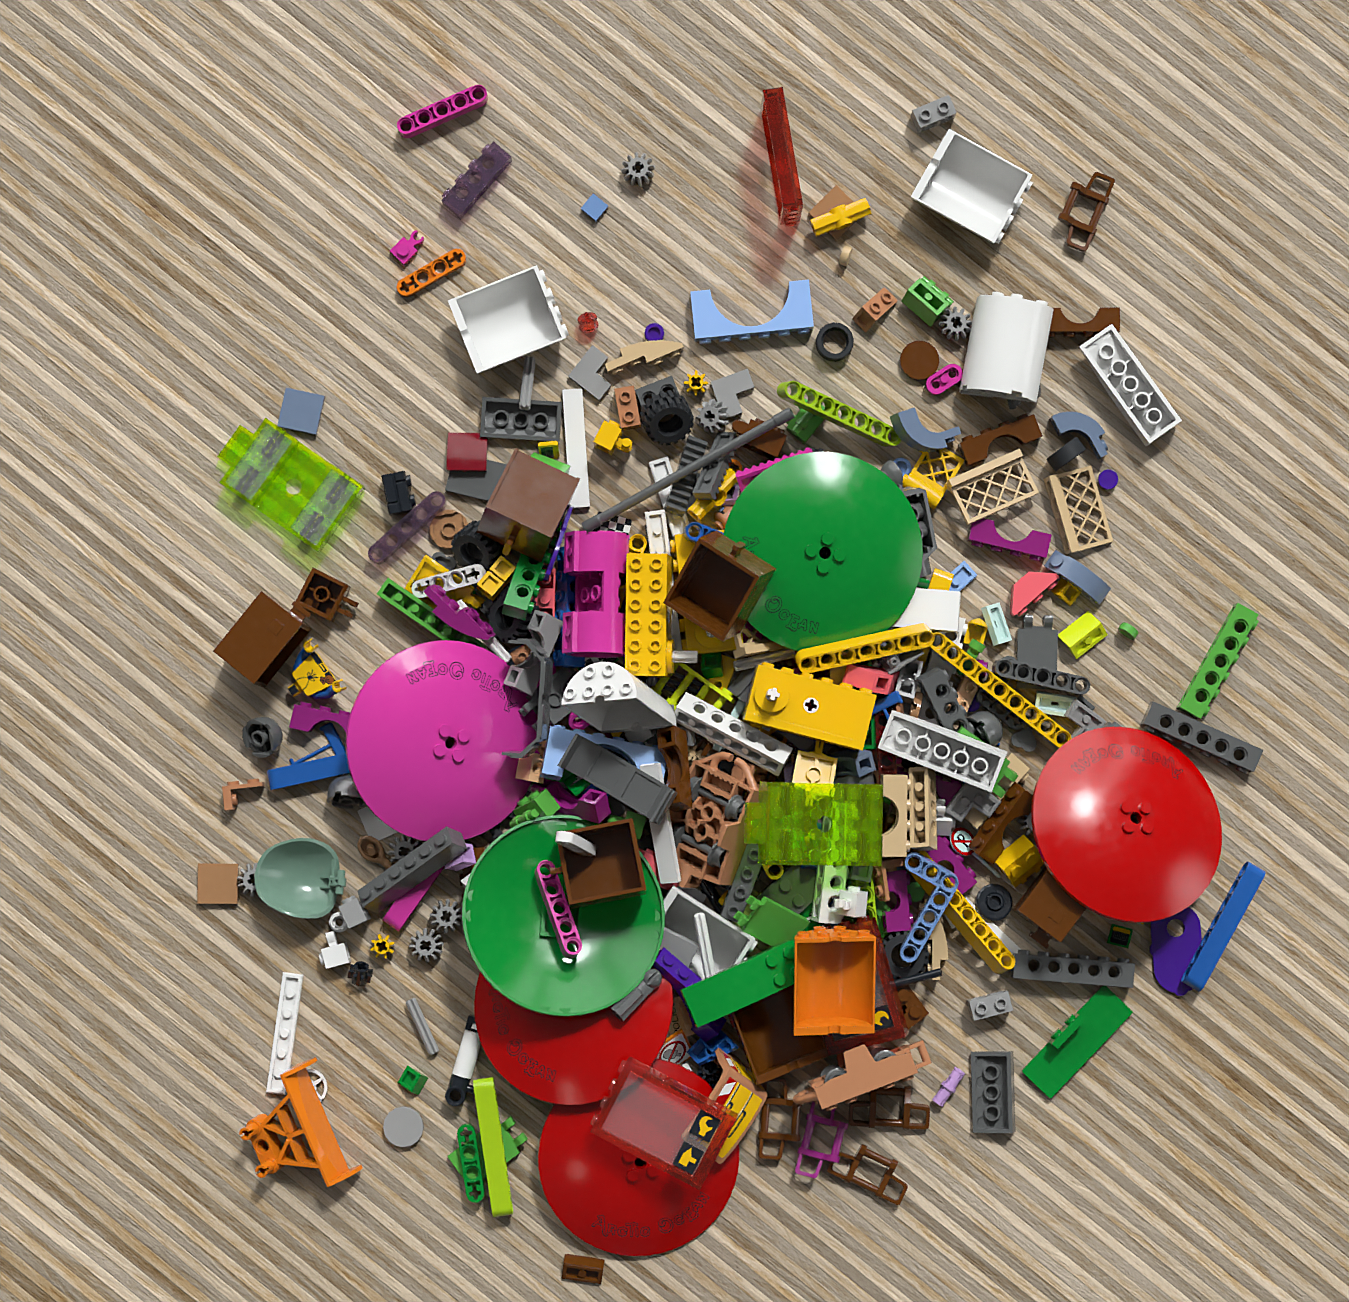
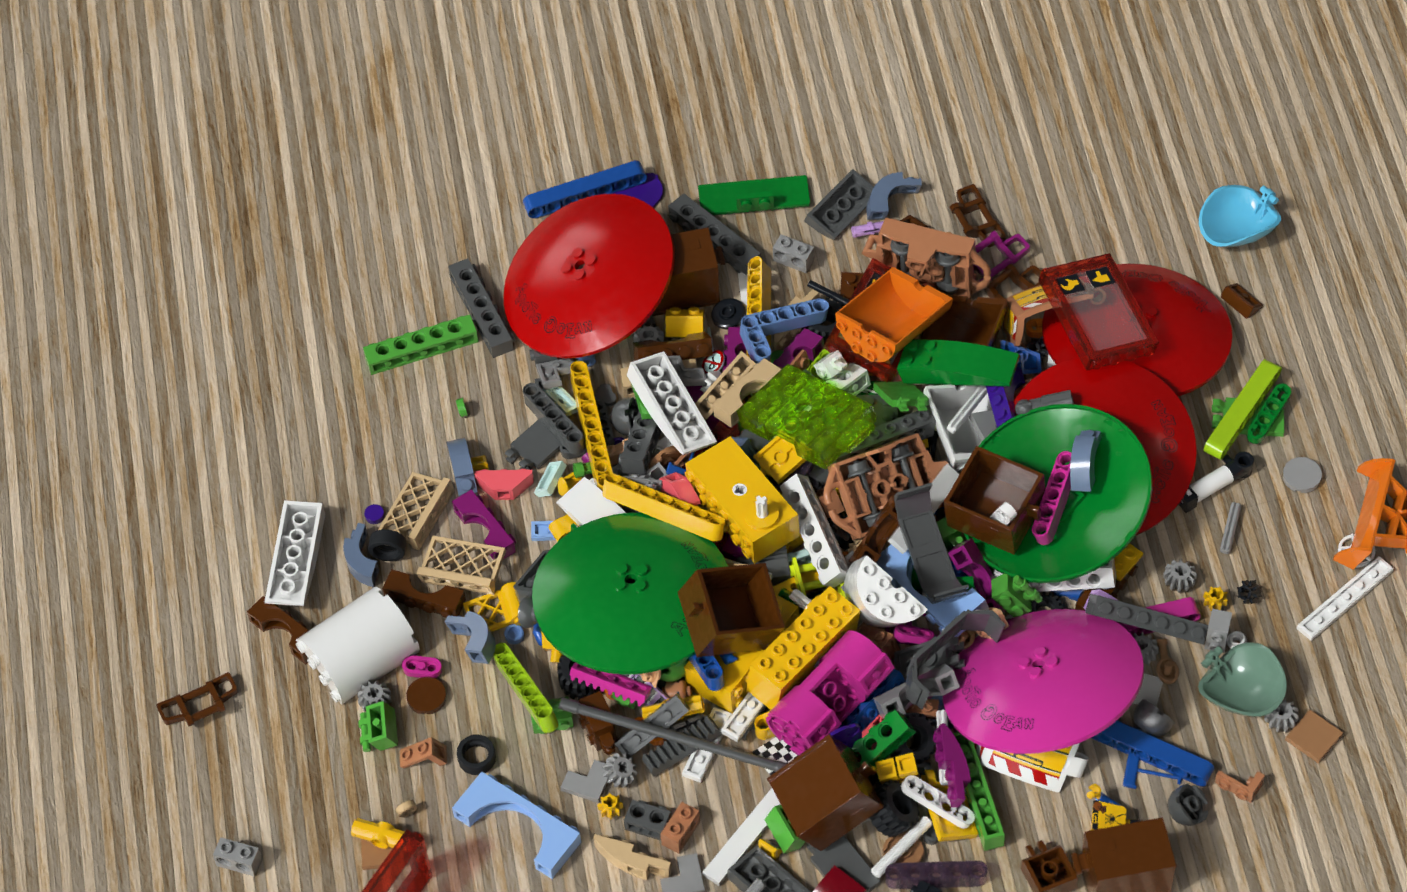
camera: 135 degrees left, 30 degrees down
(307, 718) = (1139, 797): magenta arch -> none
(335, 954) = (1258, 619): white brick -> none
(412, 1080) = (1269, 500): green slope -> none
(440, 912) = (1146, 583): light grey gear -> none
(450, 526) = (901, 846): none -> white axle
(558, 958) = (1083, 460): none -> sand blue arch
(610, 438) = (714, 811): yellow brick -> none
(654, 332) = (607, 870): dark purple tile -> none
(660, 406) = (657, 789): black tyre -> none
(968, 1128) = (889, 185): none -> sand blue arch
(972, 187) = (267, 774): white cylinder -> none
(1082, 634) = (495, 430): neon yellow panel -> none

